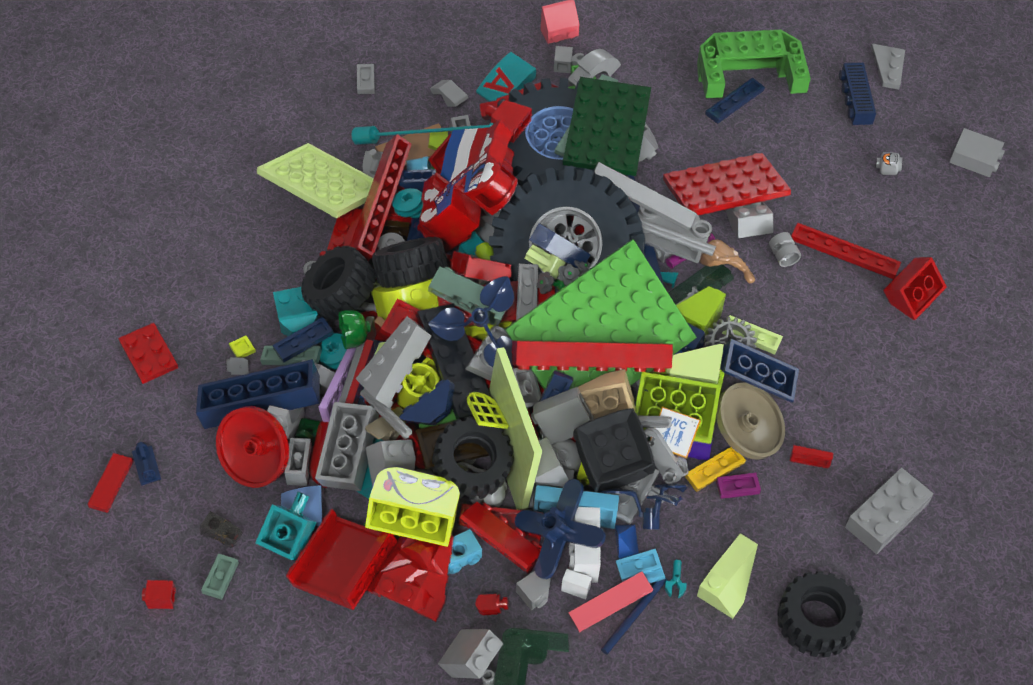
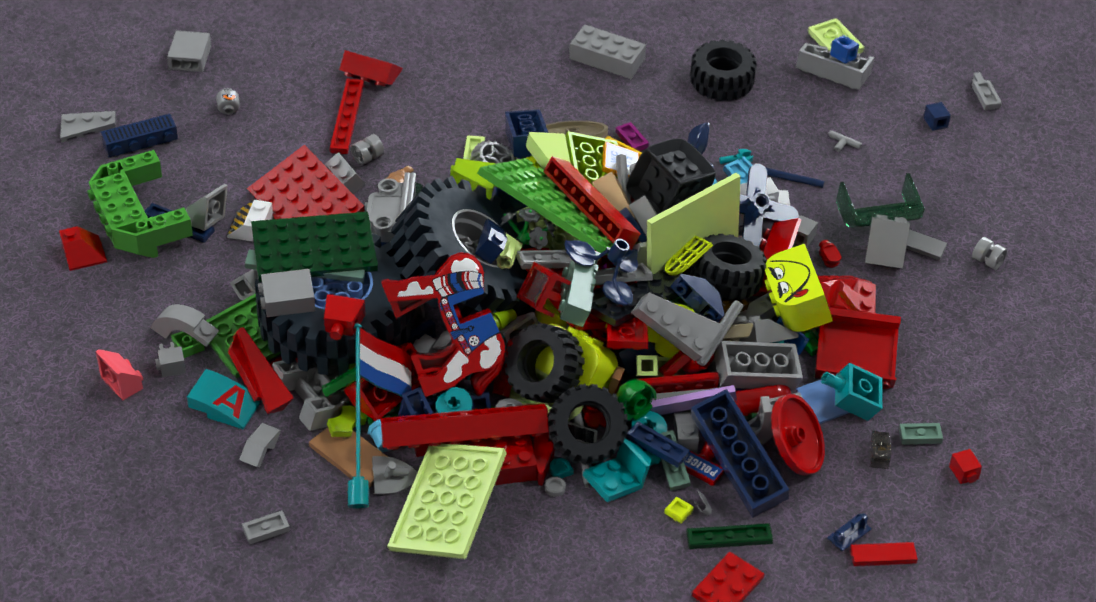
camera: 110 degrees left, 10 degrees down
(195, 374) = (729, 536): none -> dark green tile
(552, 91) = (287, 293): none -> light grey brick
(610, 601) = (797, 194): coral tile -> none
(648, 198) = (383, 216): light grey tile -> none
(711, 146) = (253, 211): none -> white slope
(720, 23) = (81, 248): none -> red slope
(729, 578) = (721, 129): yellowish green wedge -> none
(732, 112) = (208, 209): none -> light grey slope
(811, 456) = (581, 100): red tile -> none

